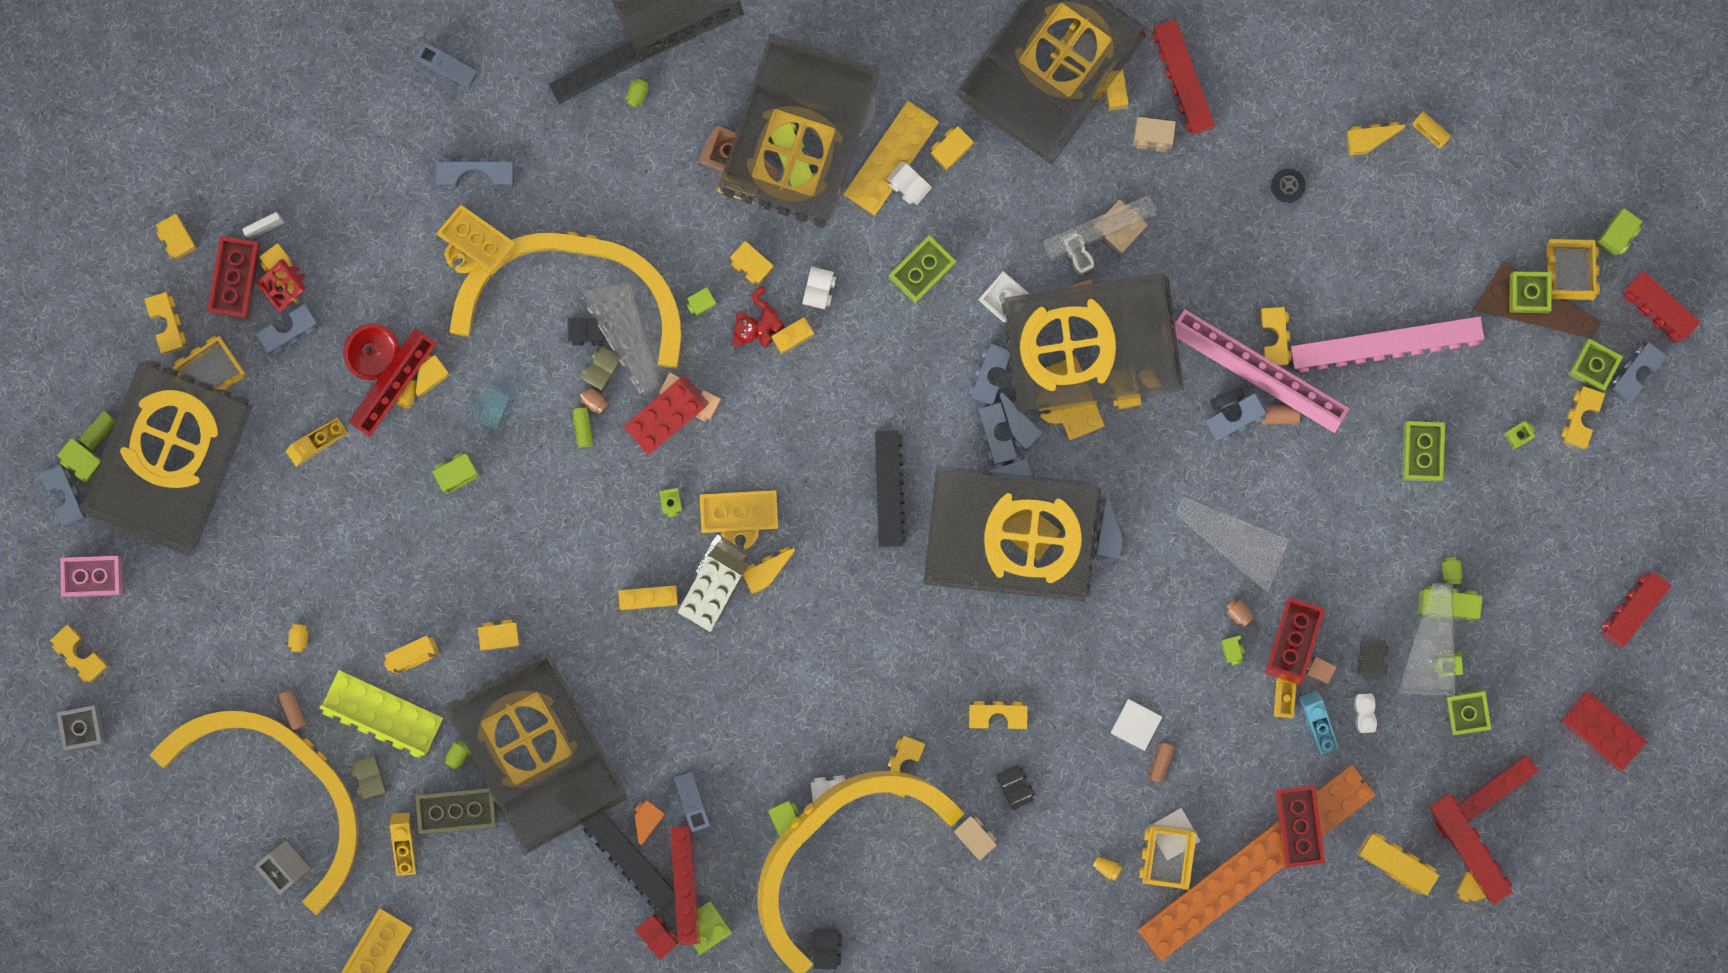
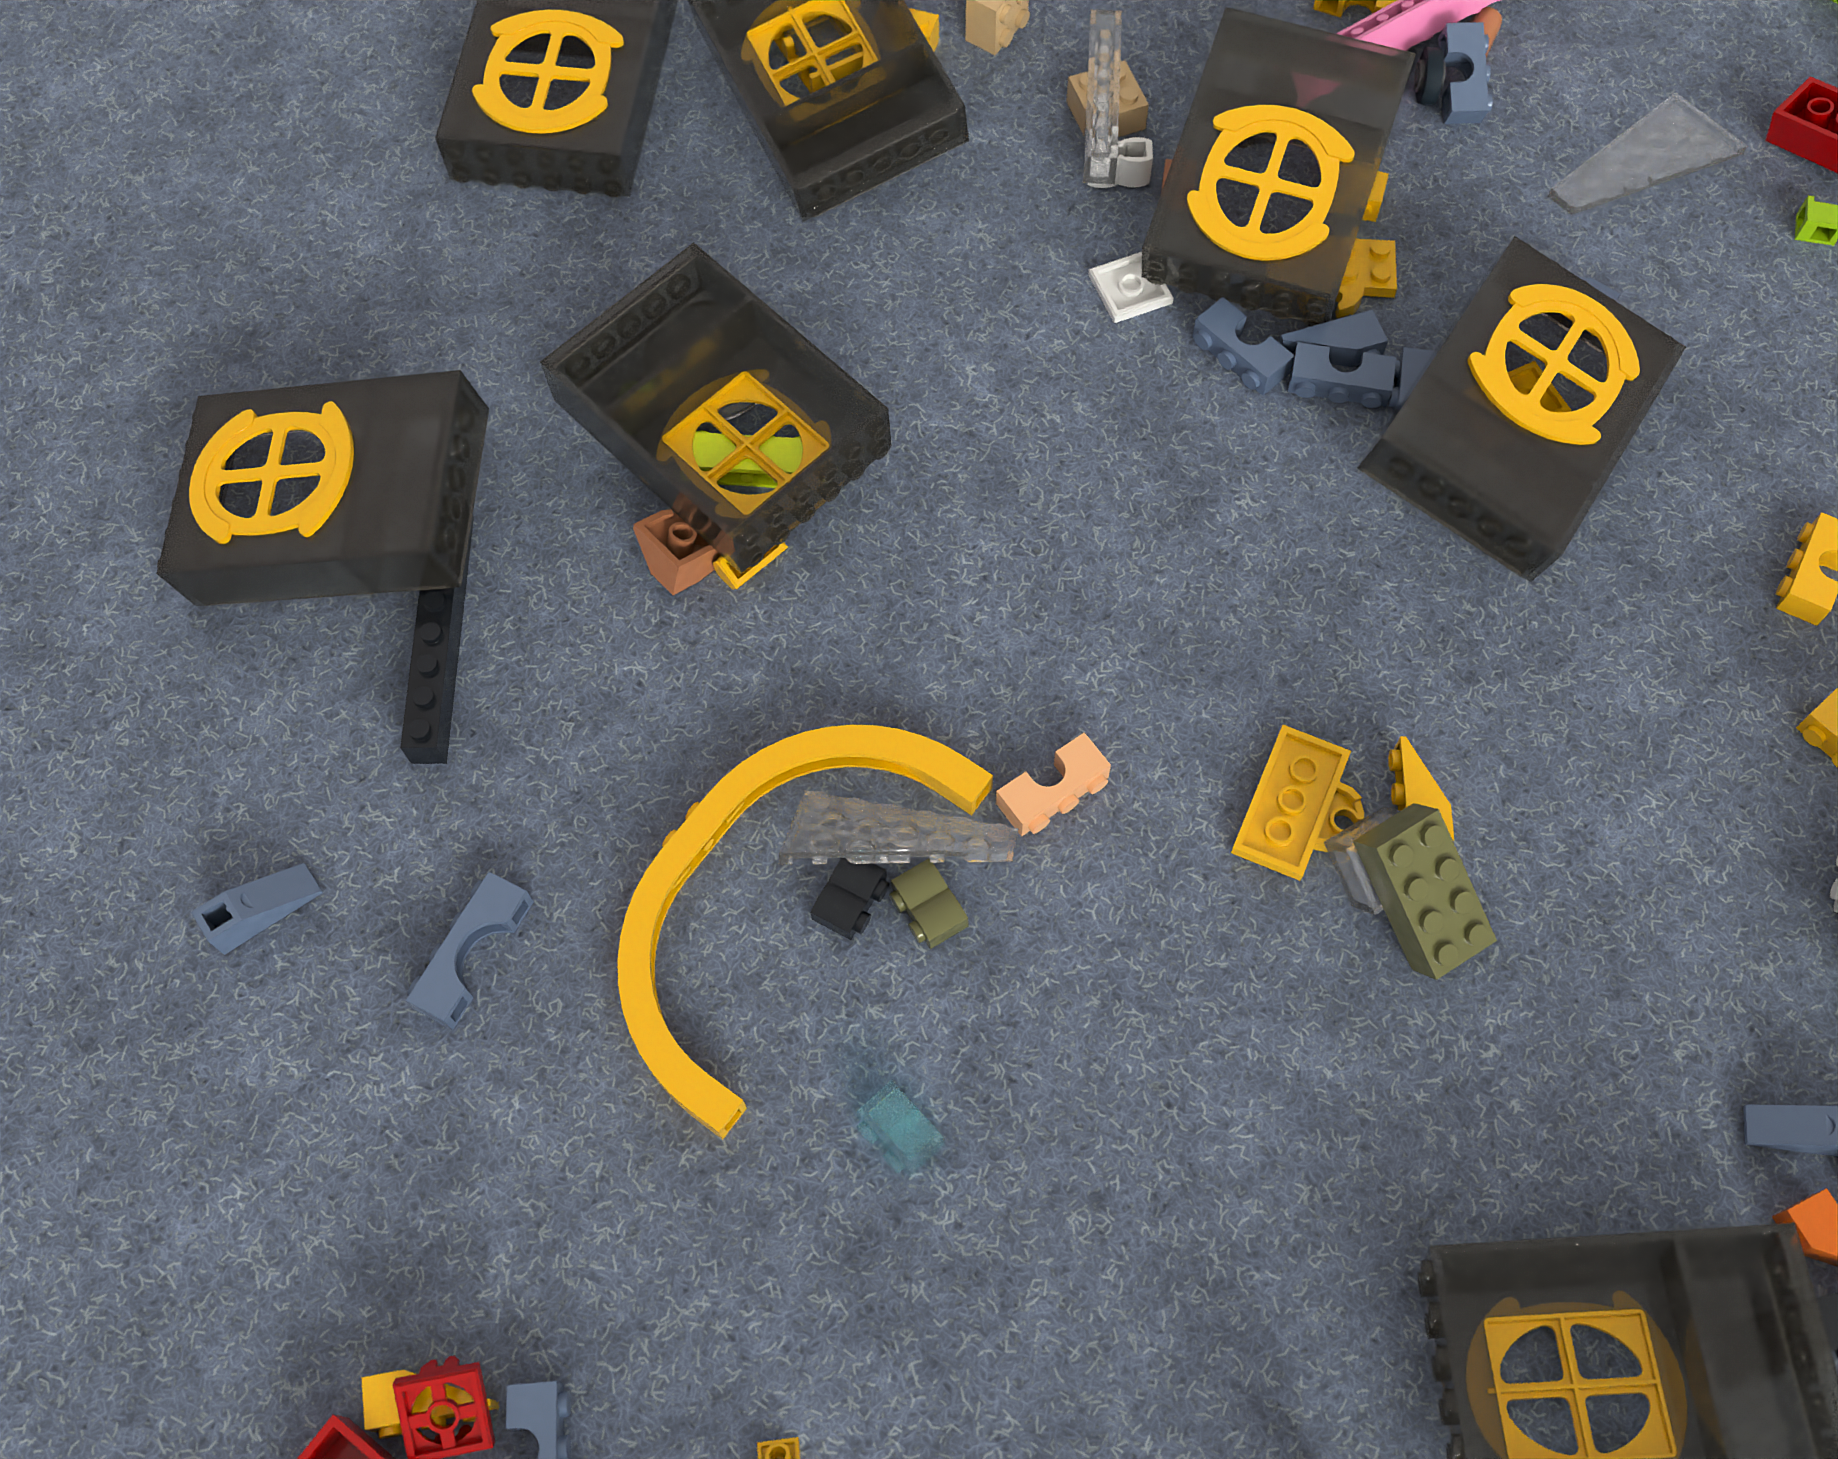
camera: 65 degrees left, 20 degrees down
(263, 226) = (312, 1386): white tile -> none
(382, 350) = (685, 1286): red dish -> none
(392, 382) = (752, 1292): red brick -> none
(407, 397) = (787, 1277): yellow cone -> none
(430, 375) = (774, 1211): yellow slope -> none
(455, 473) = (989, 1254): lime brick -> none
(474, 243) = (586, 1004): yellow plate -> none
(498, 636) = (1340, 1338): yellow piece -> none
(582, 427) = (1014, 989): lime brick -> none
(594, 400) = (977, 943): nougat brick -> none
(637, 93) = (507, 631): lime brick -> none
(648, 598) = (1385, 1022): yellow arch -> none
(666, 414) = (1069, 825): red brick -> none
(671, 494) = (1214, 910): lime brick -> none
(701, 302) = (902, 693): lime brick -> none
(748, 329) = (987, 644): red animal -> none
(751, 262) = (882, 590): yellow piece -> none
(792, 335) = (1034, 583): yellow piece -> none
(818, 288) = (977, 515): white brick -> none
(888, 488) = (1360, 560): black brick -> none
(899, 143) = (821, 313): yellow plate -> none
(908, 183) = (886, 322): white brick -> none
(922, 269) = (1030, 360): lime brick -> none
(951, 148) = (868, 252): yellow piece -> none
(1239, 612) = (1764, 192): nougat brick -> none

